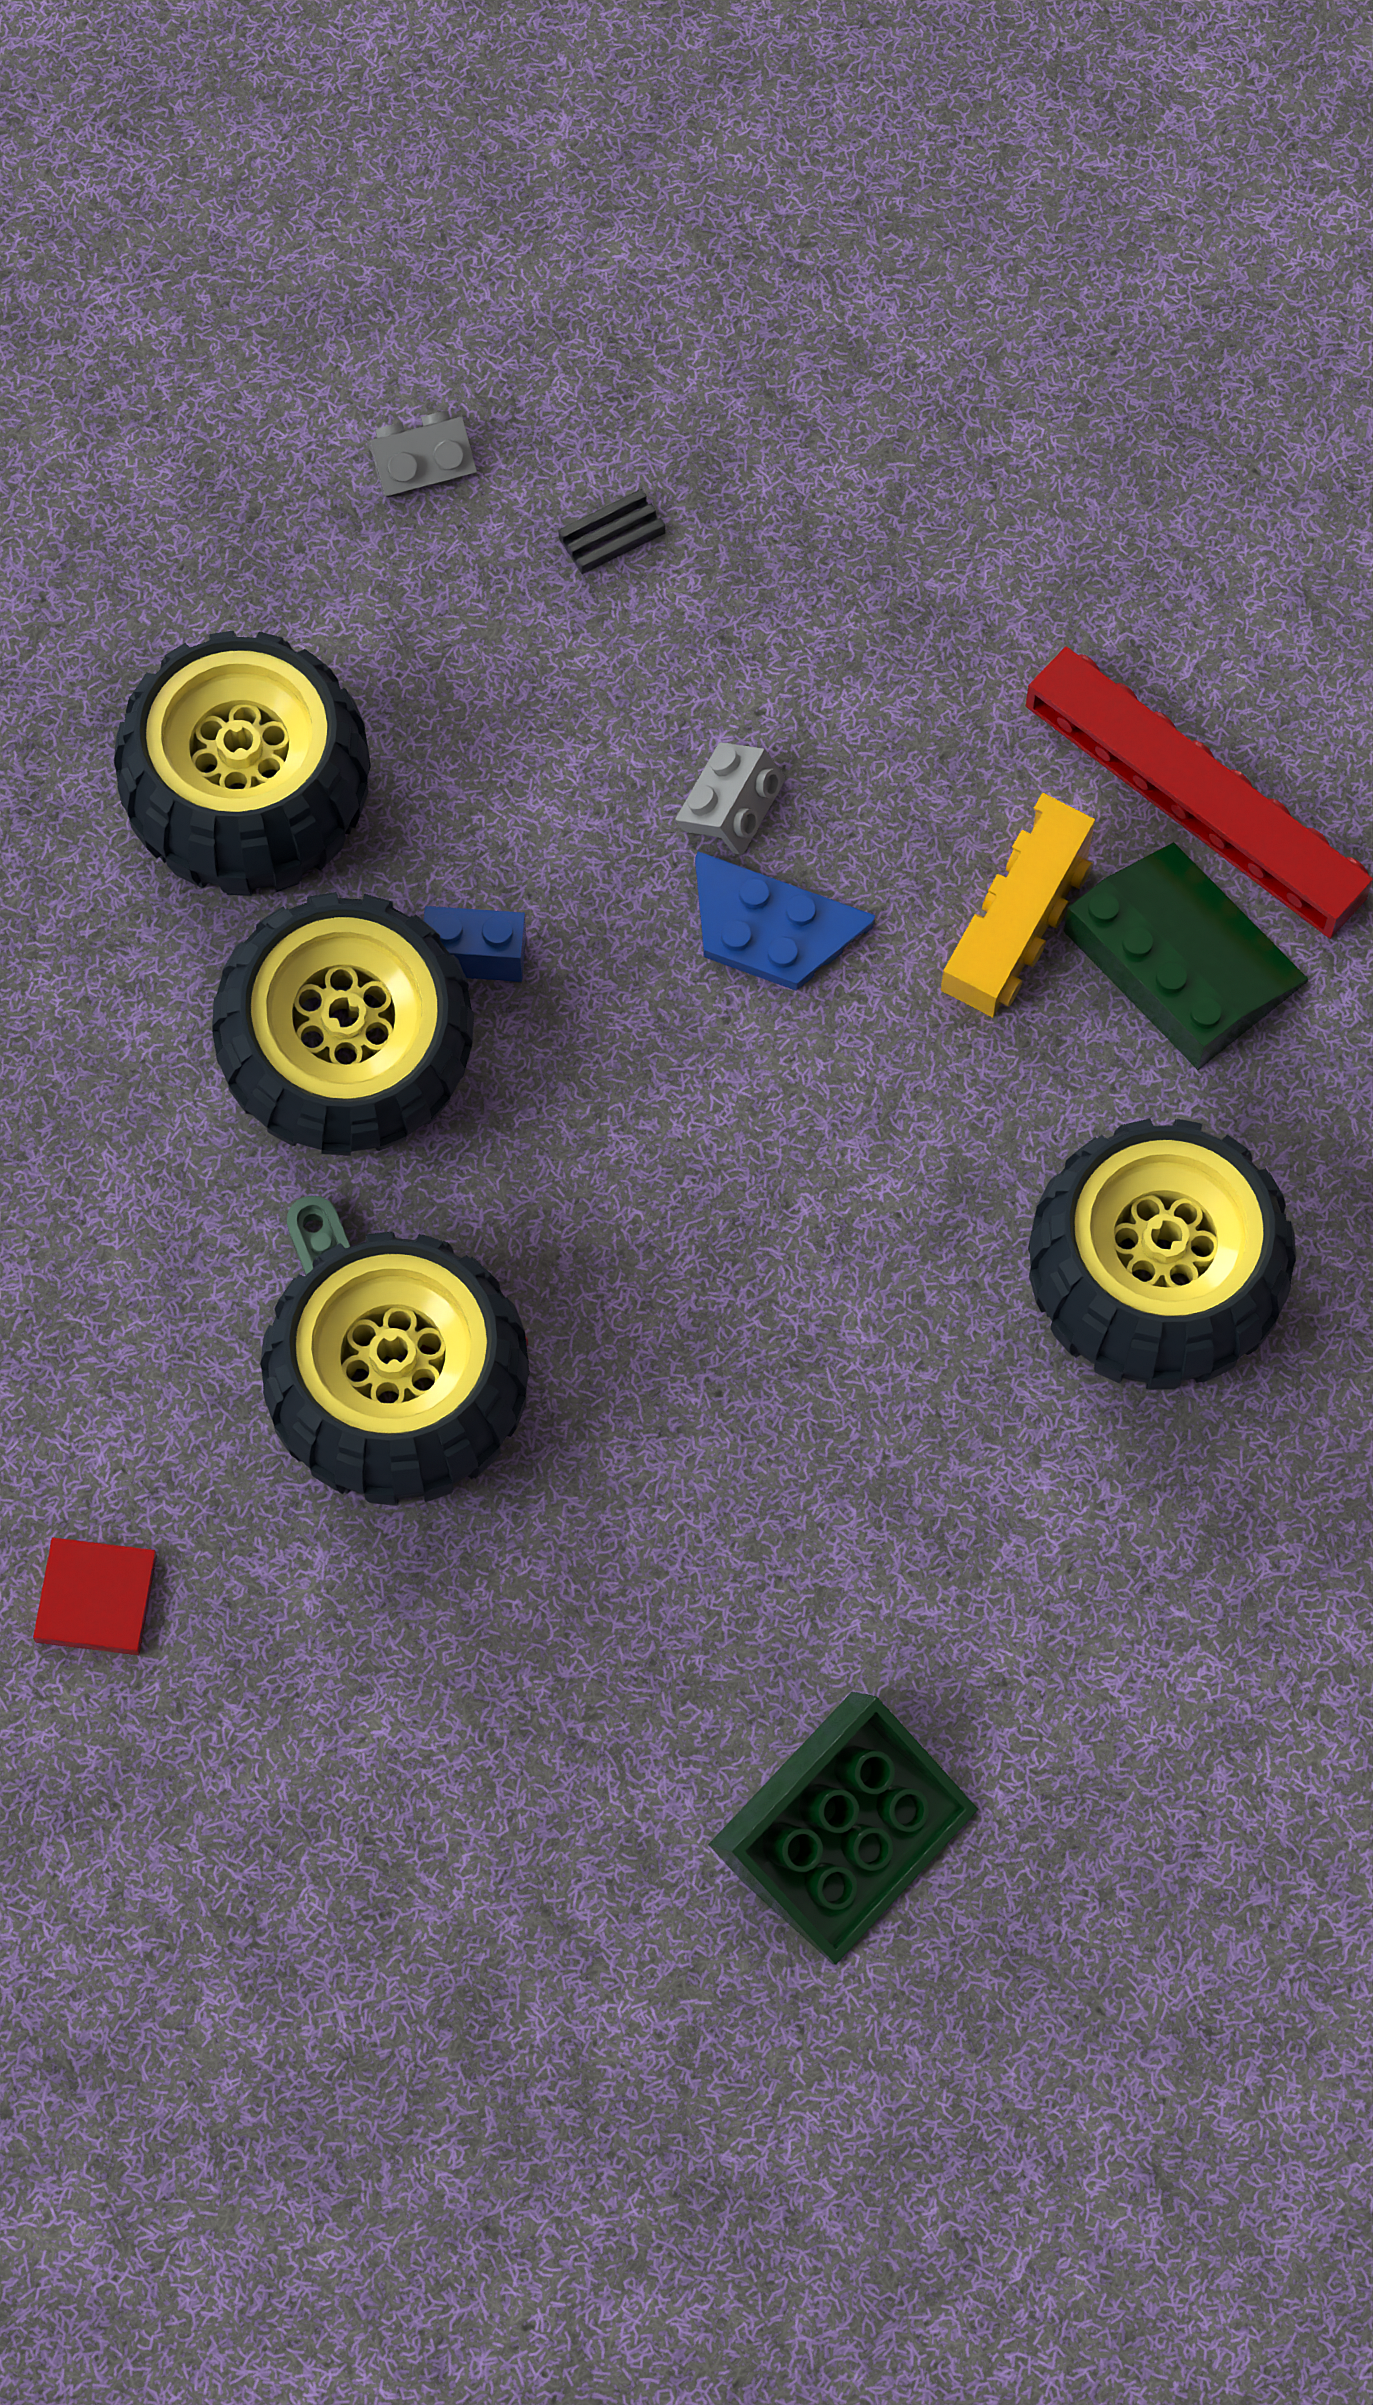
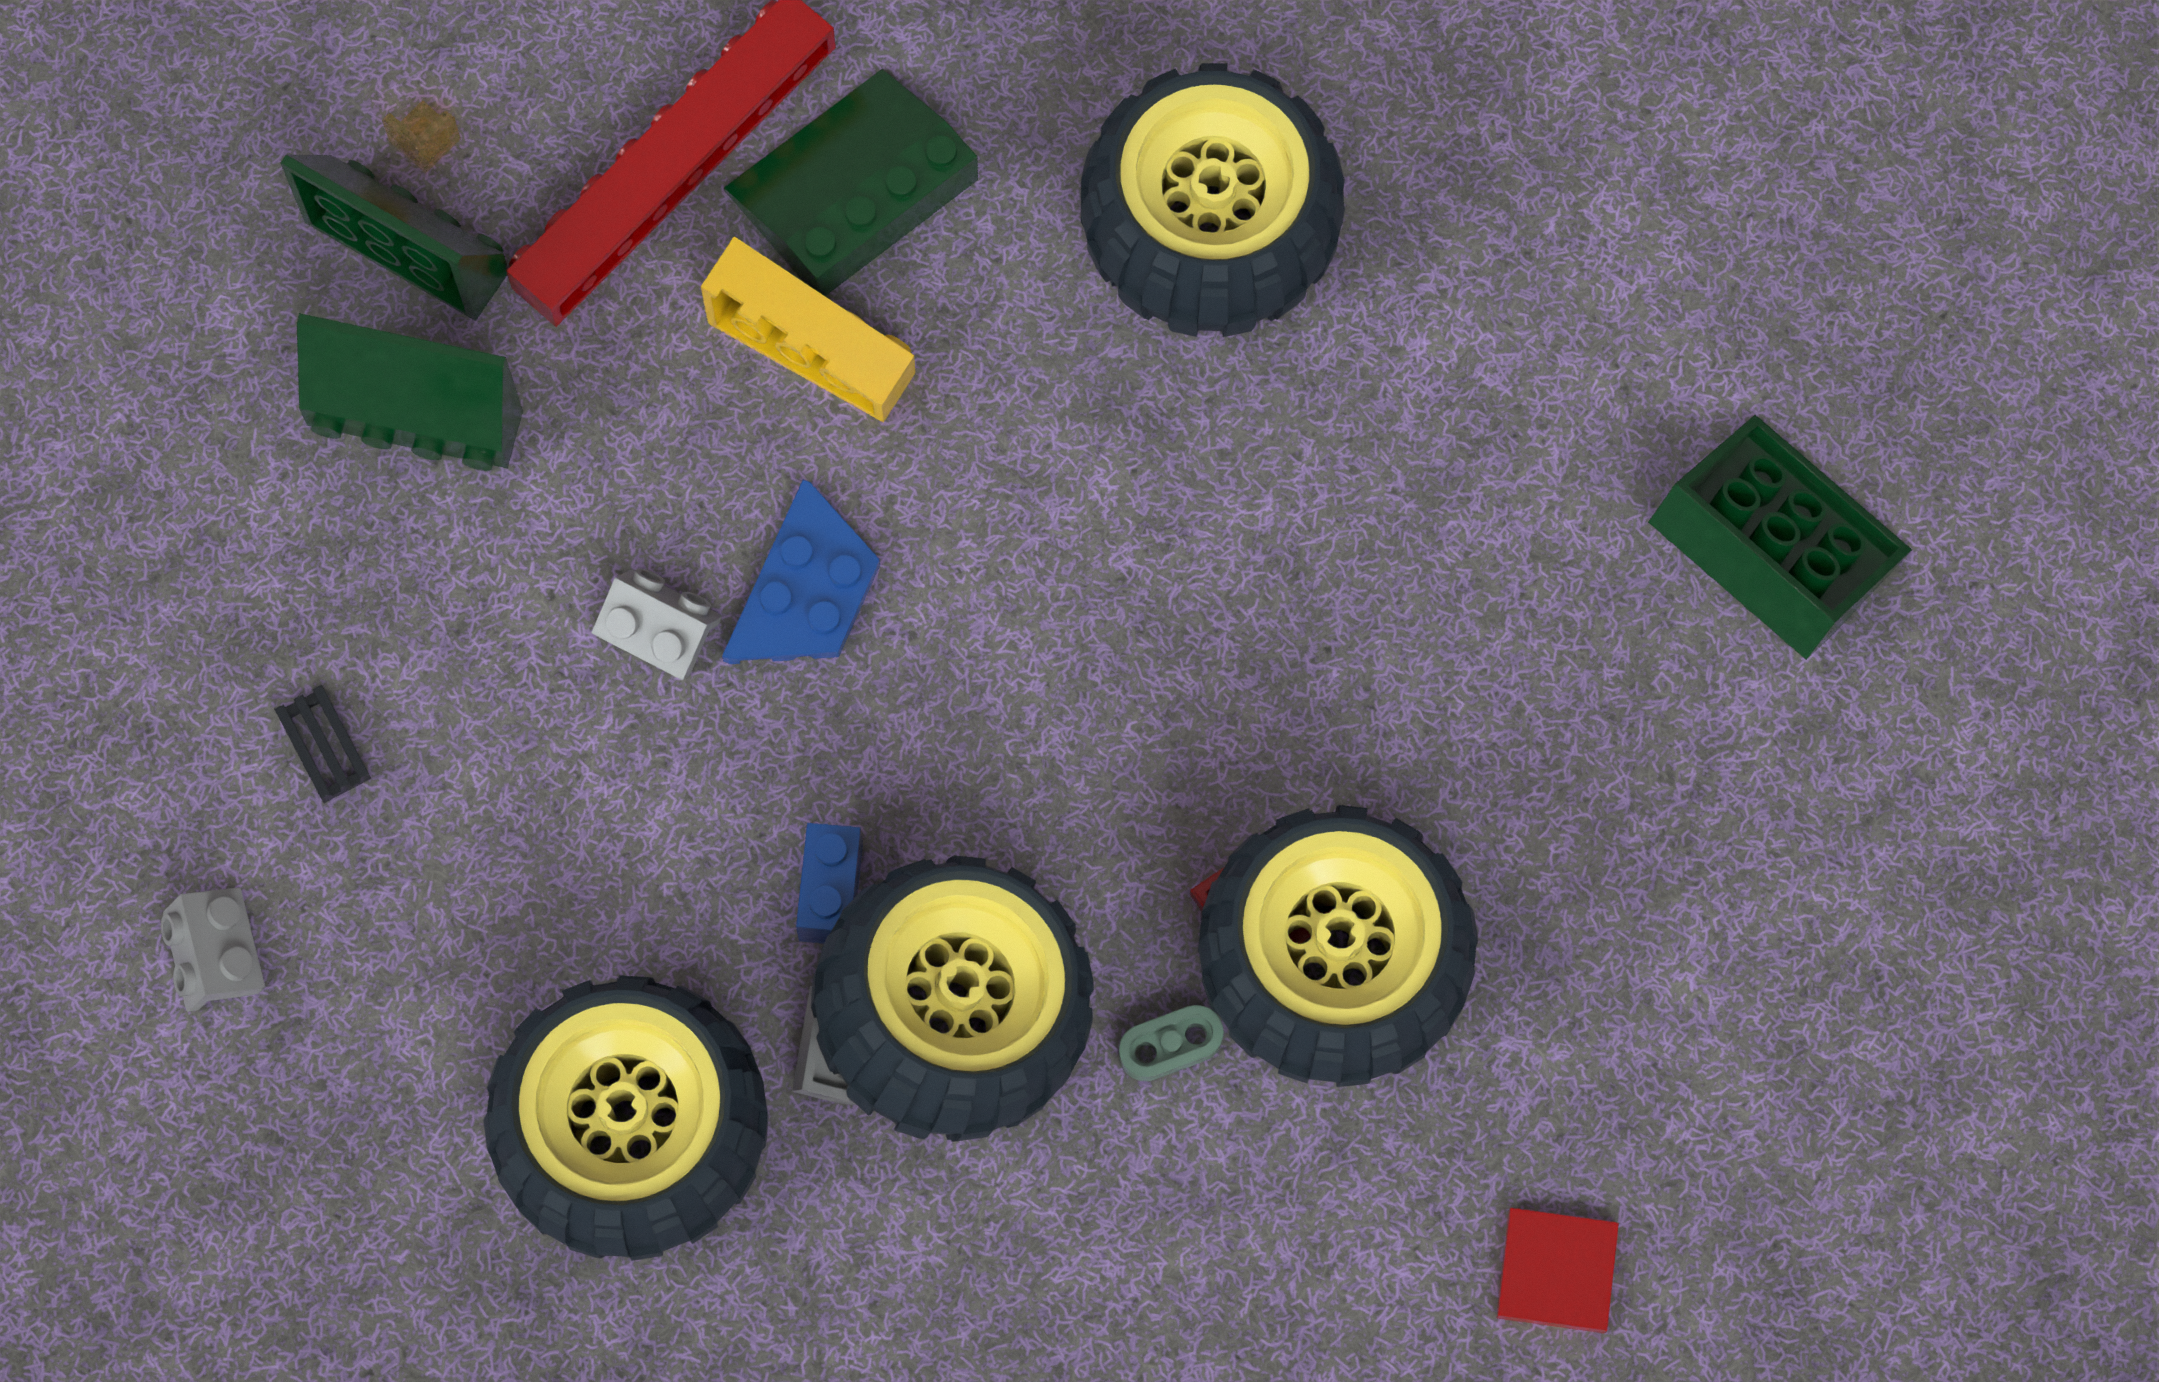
camera: 90 degrees left, 5 degrees up
(931, 568) = (406, 393): none -> dark green slope
(1103, 548) = (396, 231): none -> dark green slope
(1206, 579) = (422, 135): none -> clear yellow panel

